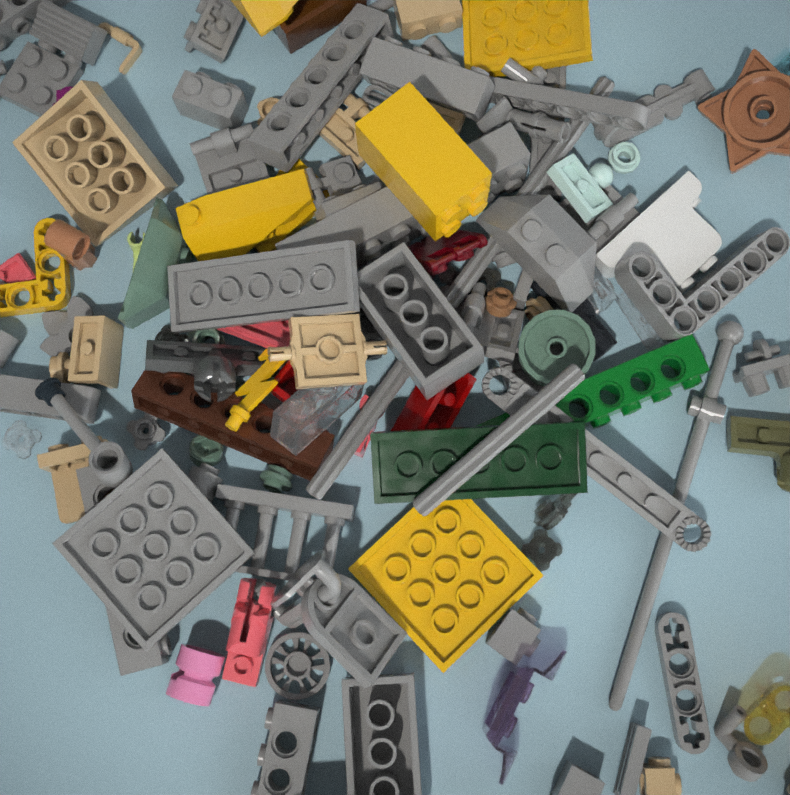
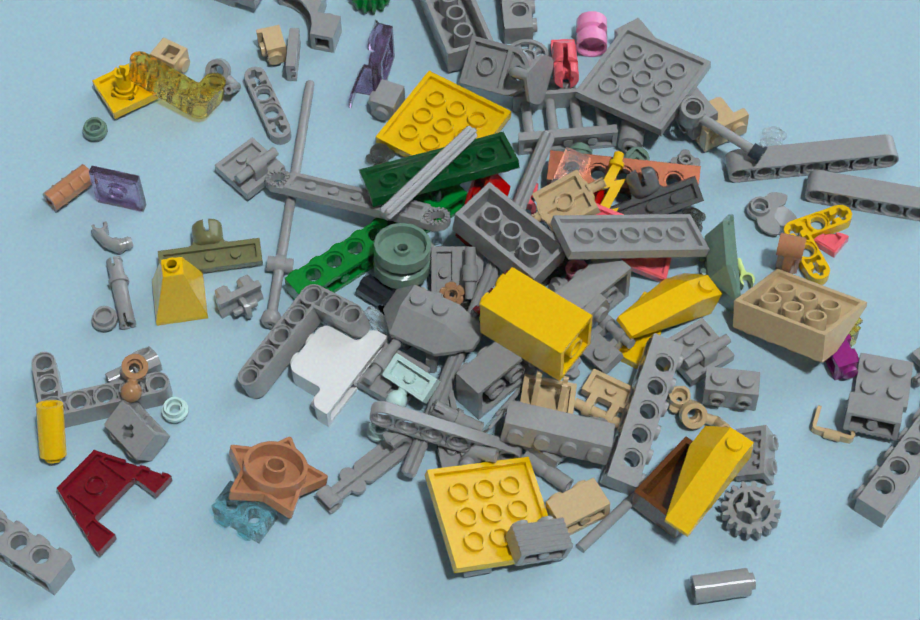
camera: 160 degrees right, 20 degrees down
(60, 367) = (762, 183): tan plate -> none
(95, 351) = (742, 194): tan panel -> none
(260, 86) = (700, 417): none -> tan plate
(725, 573) = (248, 166): none -> light grey plate

